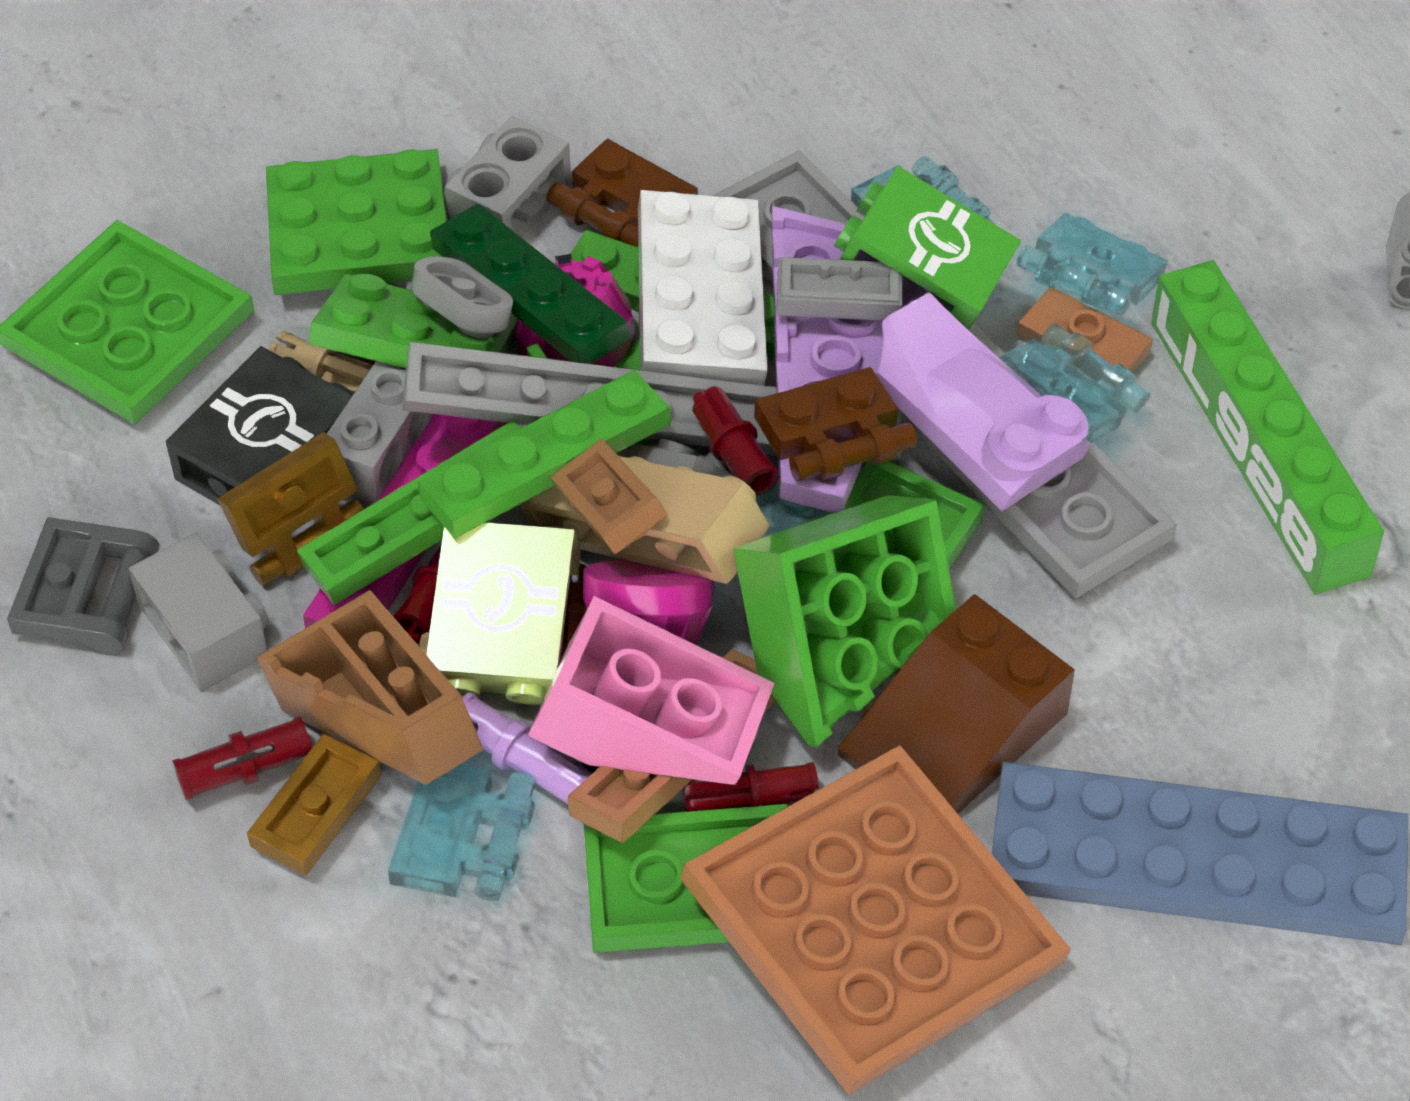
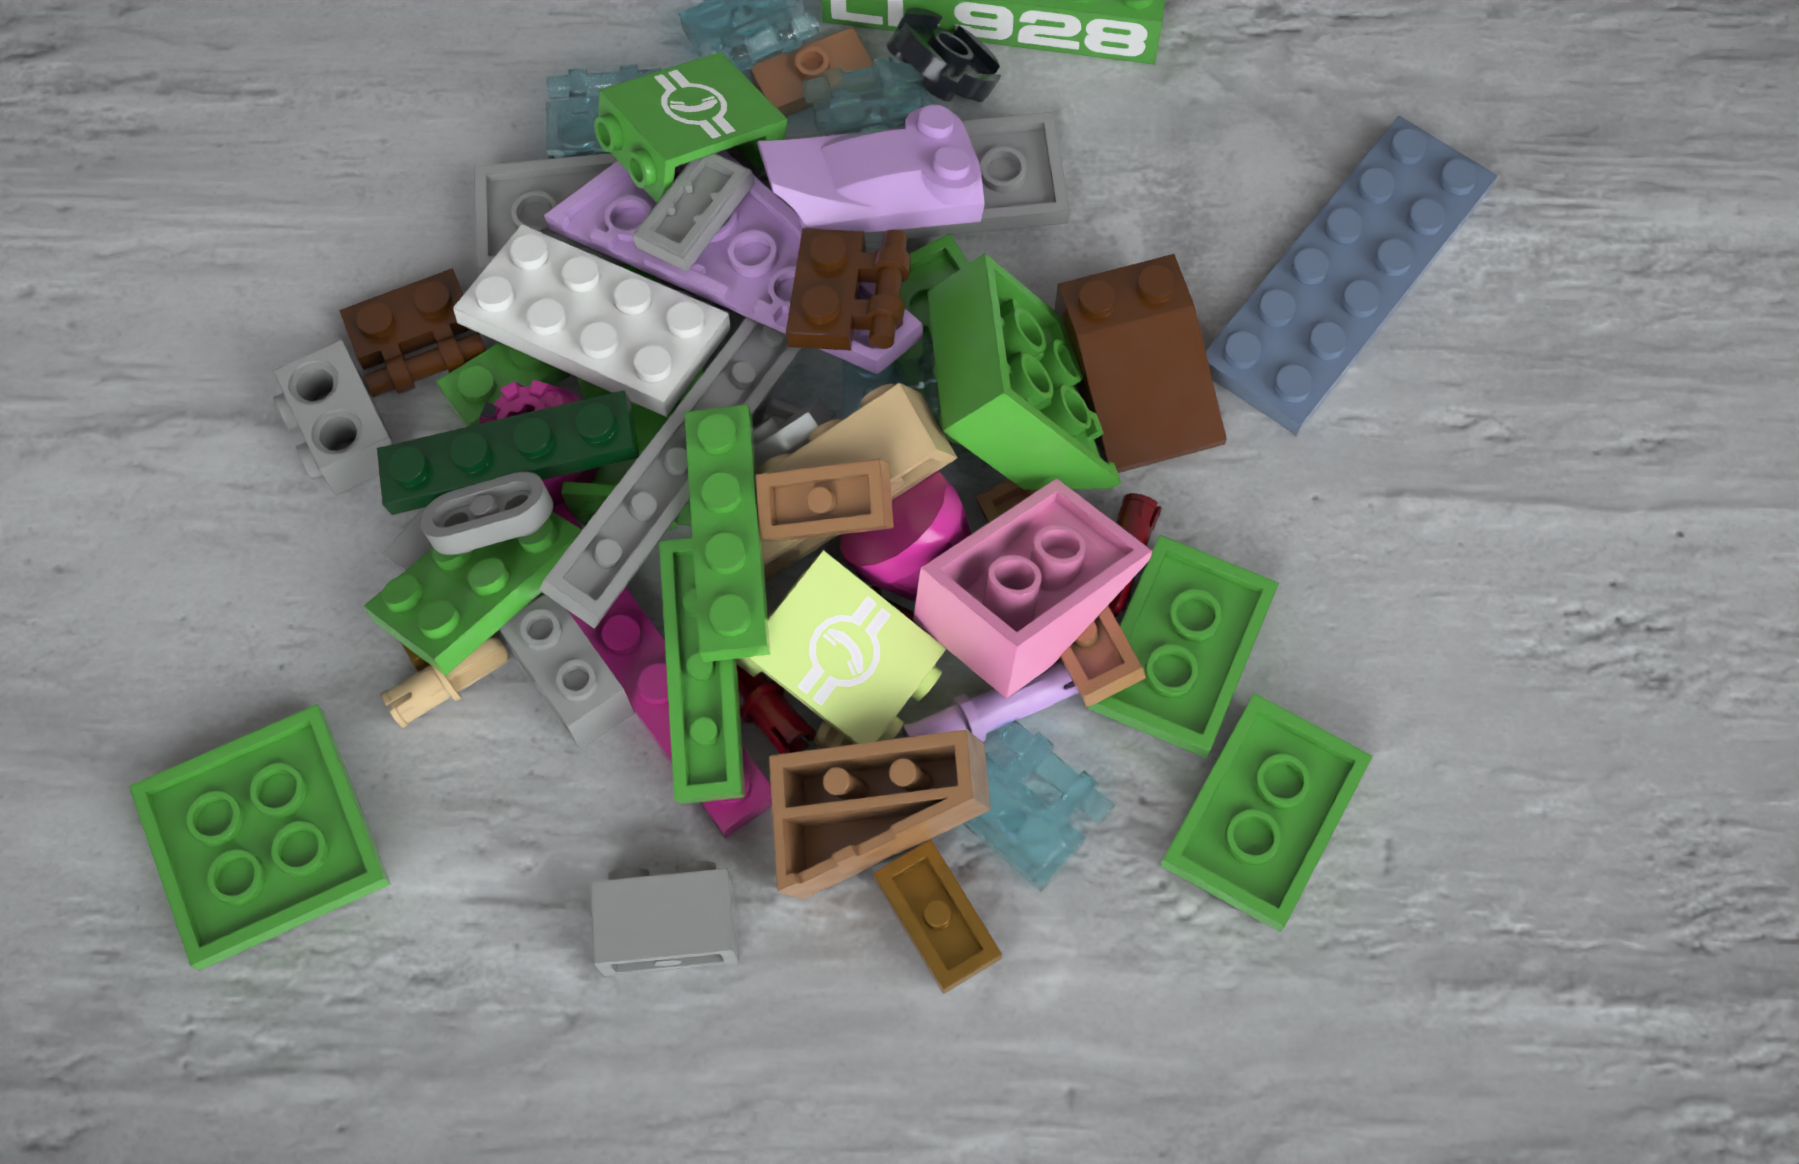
camera: 60 degrees left, 15 degrees up
(62, 580) = (544, 1032): dark grey plate -> none
(197, 772) = (850, 957): dark red pin -> none
(252, 422) = (496, 770): pearl dark grey panel -> none
(286, 497) = (613, 781): pearl gold plate -> none
(352, 218) = (284, 569): bright green plate -> none
(565, 1018) = (1266, 812): none -> bright green plate
(734, 440) = (796, 376): dark red axle -> none
(874, 917) = (1309, 526): nougat plate -> none
(1168, 437) = (947, 60): none -> black plate

